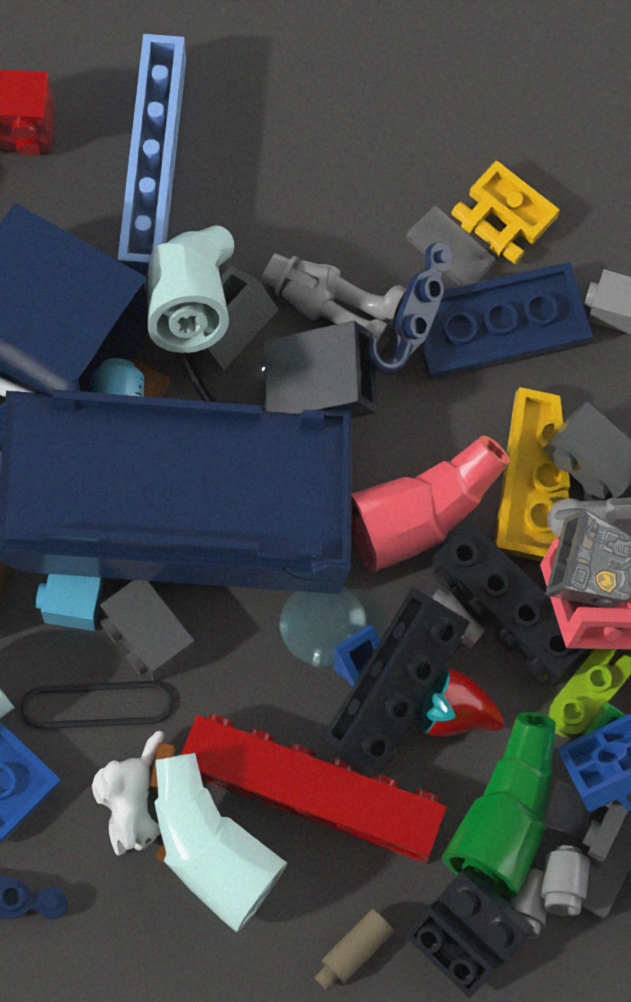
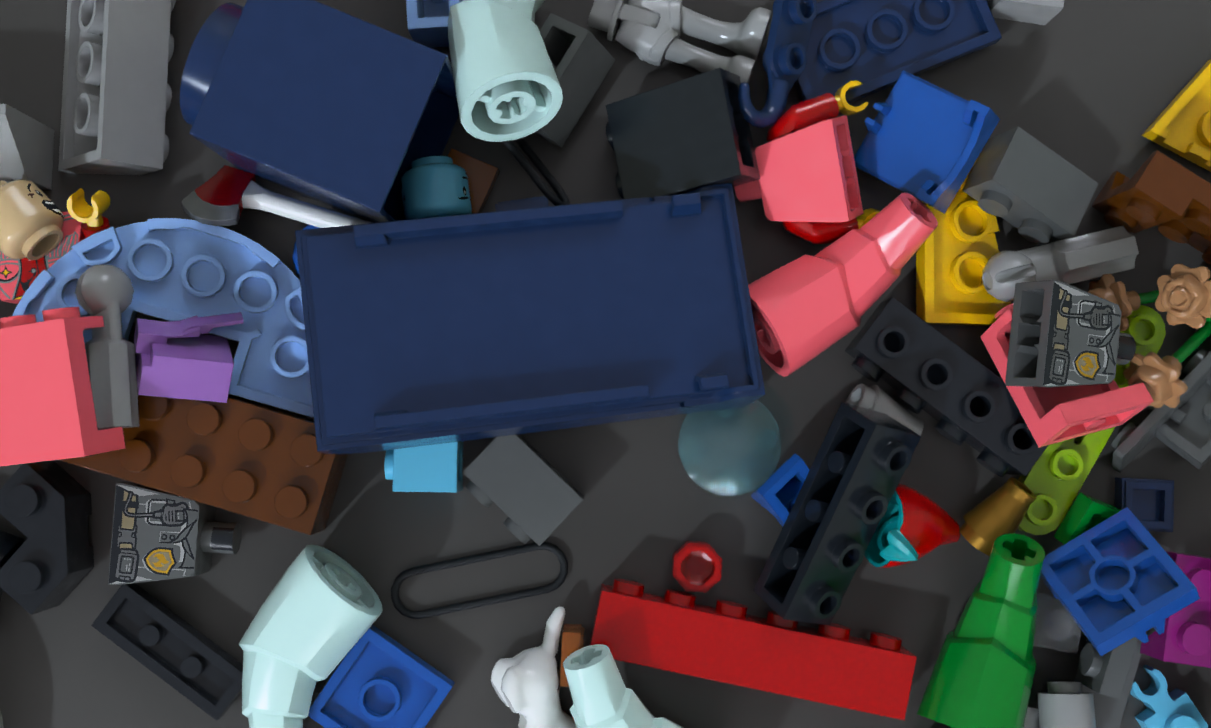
camera: 10 degrees left, 15 degrees up
(279, 716) = (697, 566): none -> red tile
(419, 412) = (811, 170): none -> coral torso
(514, 404) = (925, 140): none -> blue piece
(541, 700) = (997, 515): none -> pearl gold cone

